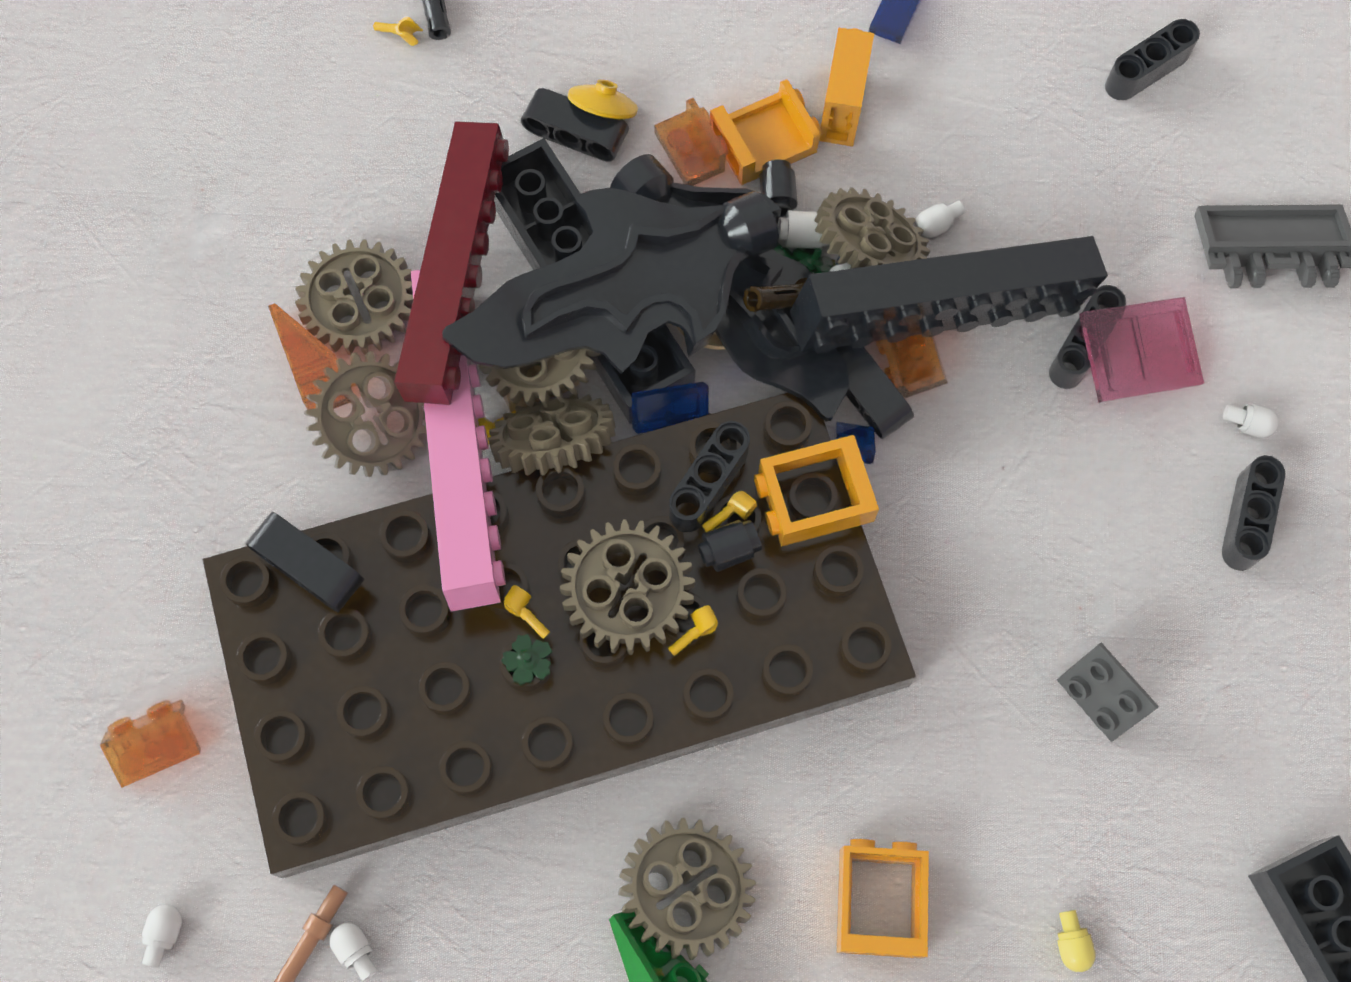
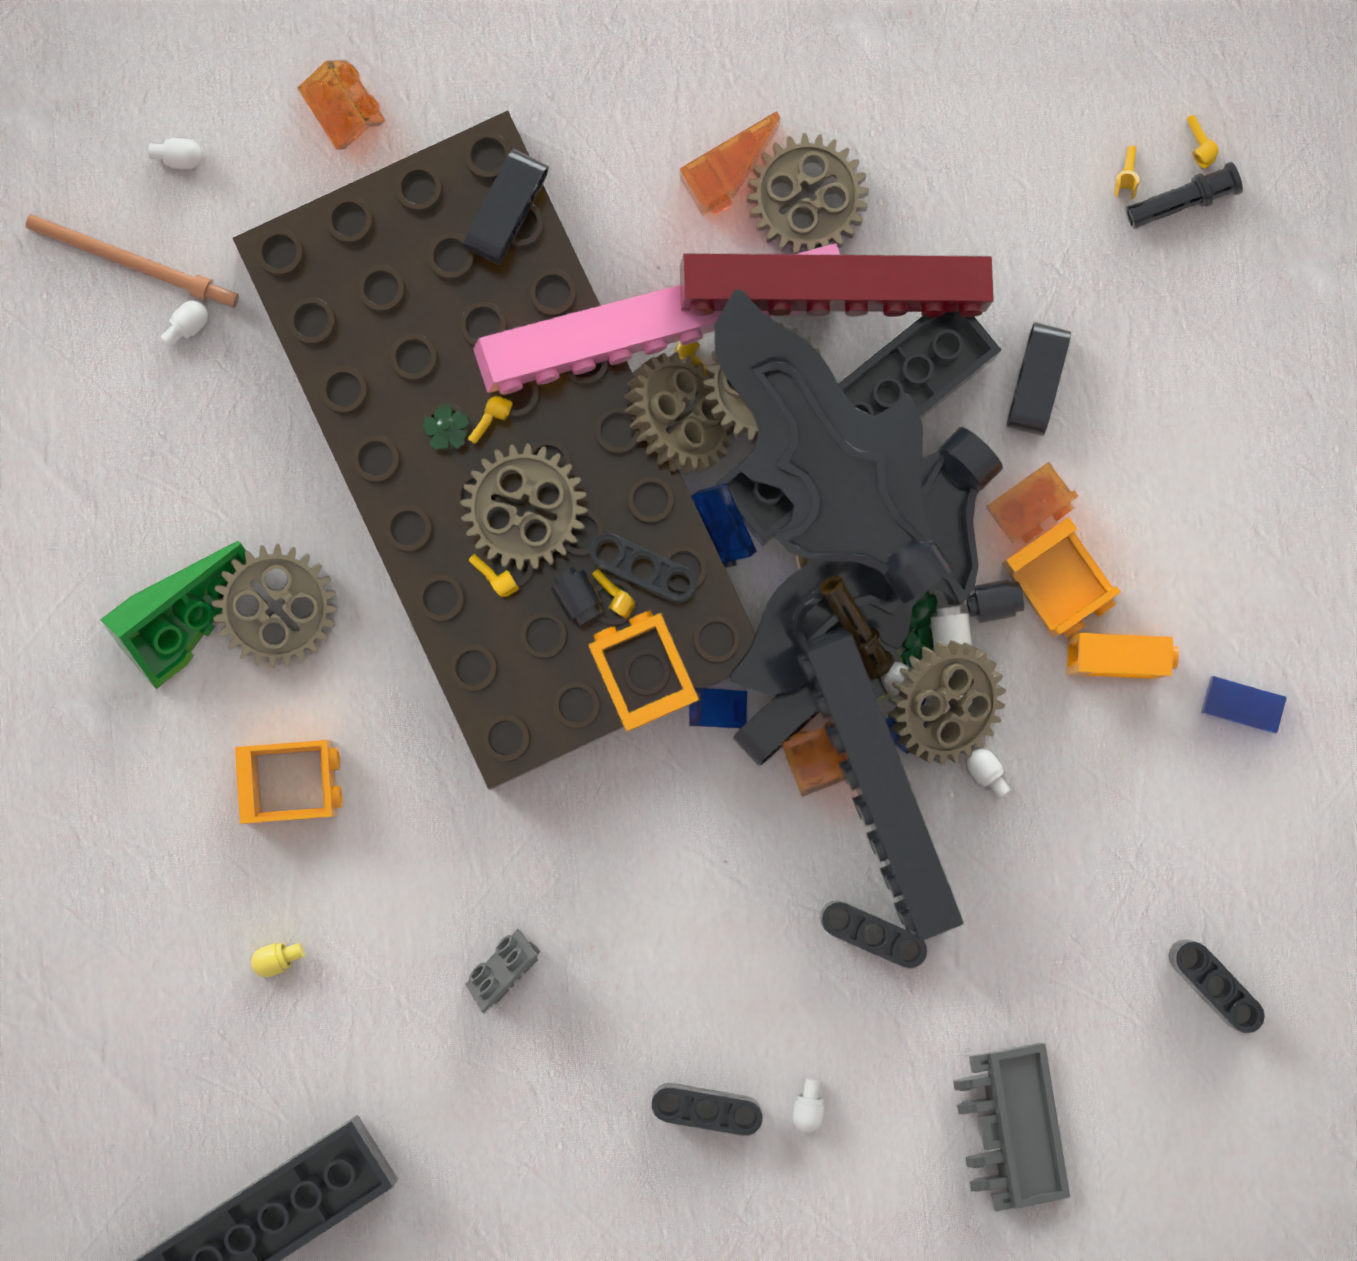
camera: 85 degrees right, 15 degrees up
(339, 431) = (655, 208): dark tan gear -> none
(603, 100) = (1066, 403): yellow dish -> none
(1141, 349) = (863, 988): clear pink piece -> none

